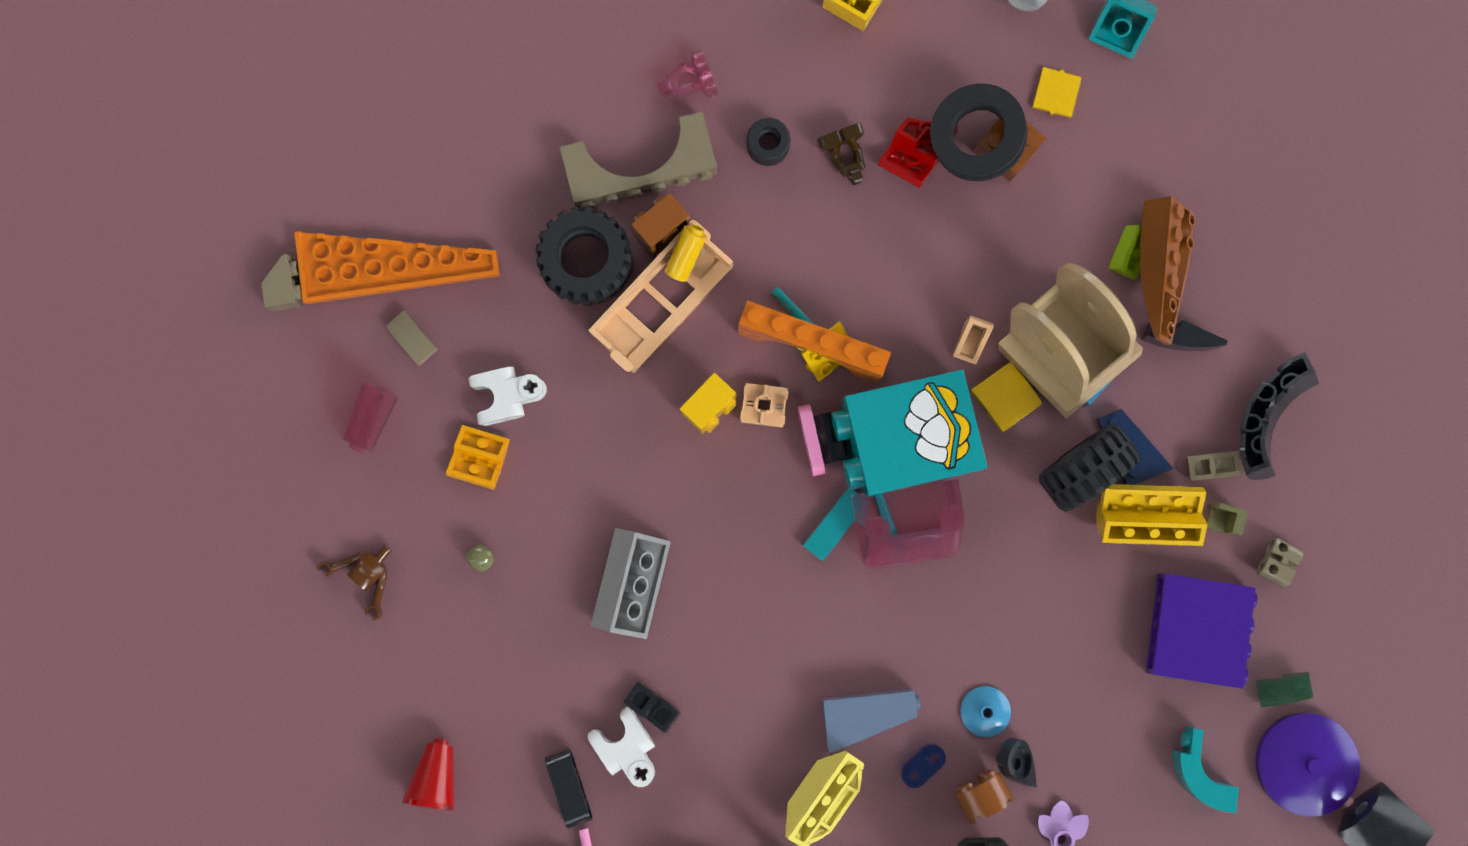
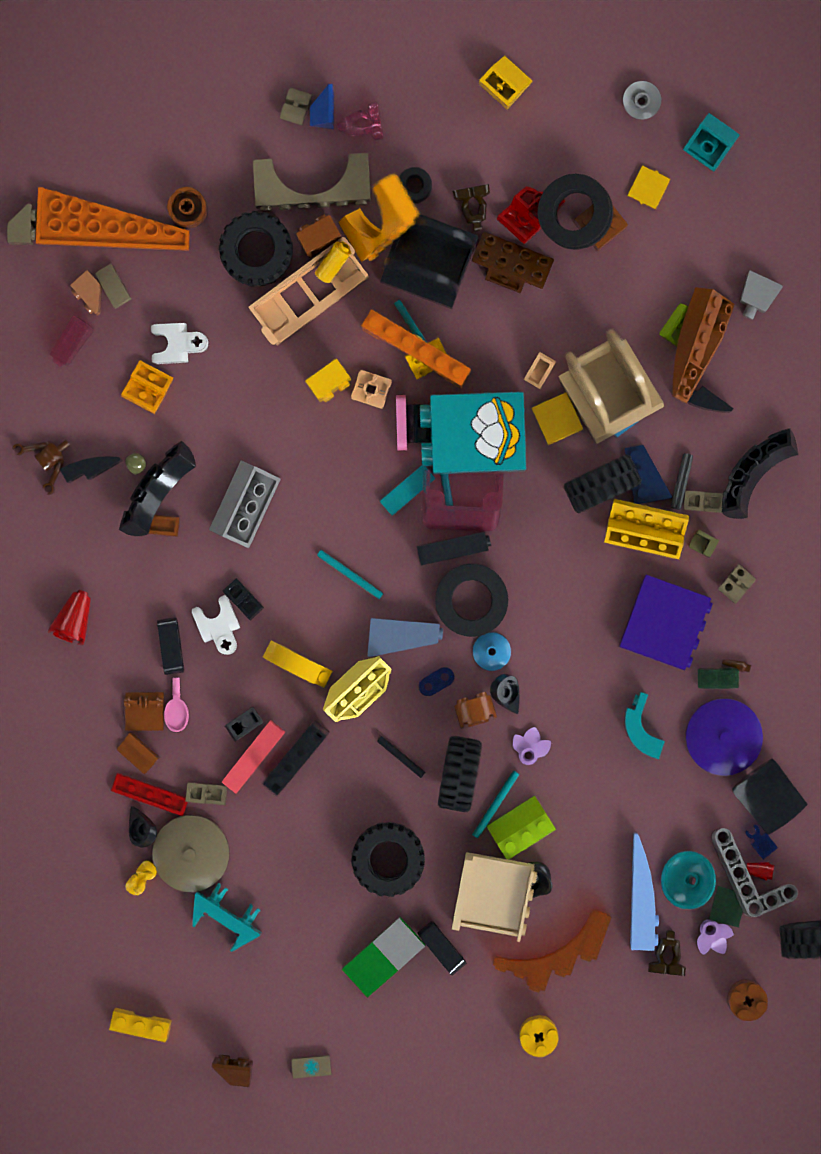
camera: 20 degrees right, 5 degrees up
(383, 349) = (89, 290): none -> nougat slope
(420, 575) = (89, 467): none -> black slope
(476, 215) = (178, 201): none -> dark orange brick
(509, 588) = (154, 488): none -> black brick
(525, 631) = (165, 525): none -> dark orange tile
(601, 74) = (296, 106): none -> dark tan piece
(635, 68) = (323, 109): none -> blue slope
(738, 781) = (297, 664): none -> yellow arch
(760, 165) = (396, 215): none -> light orange arch
(783, 647) = (350, 574): none -> teal piece
(806, 224) = (429, 260): none -> black piece
(909, 216) = (511, 263): none -> reddish brown bracket
(910, 588) = (453, 548): none -> black slope
(983, 650) = (498, 595): none -> black tyre
(1179, 445) = (681, 482): none -> dark grey axle
(1222, 194) = (758, 294): none -> light grey torso
(1303, 666) = (742, 666): none -> reddish brown piece

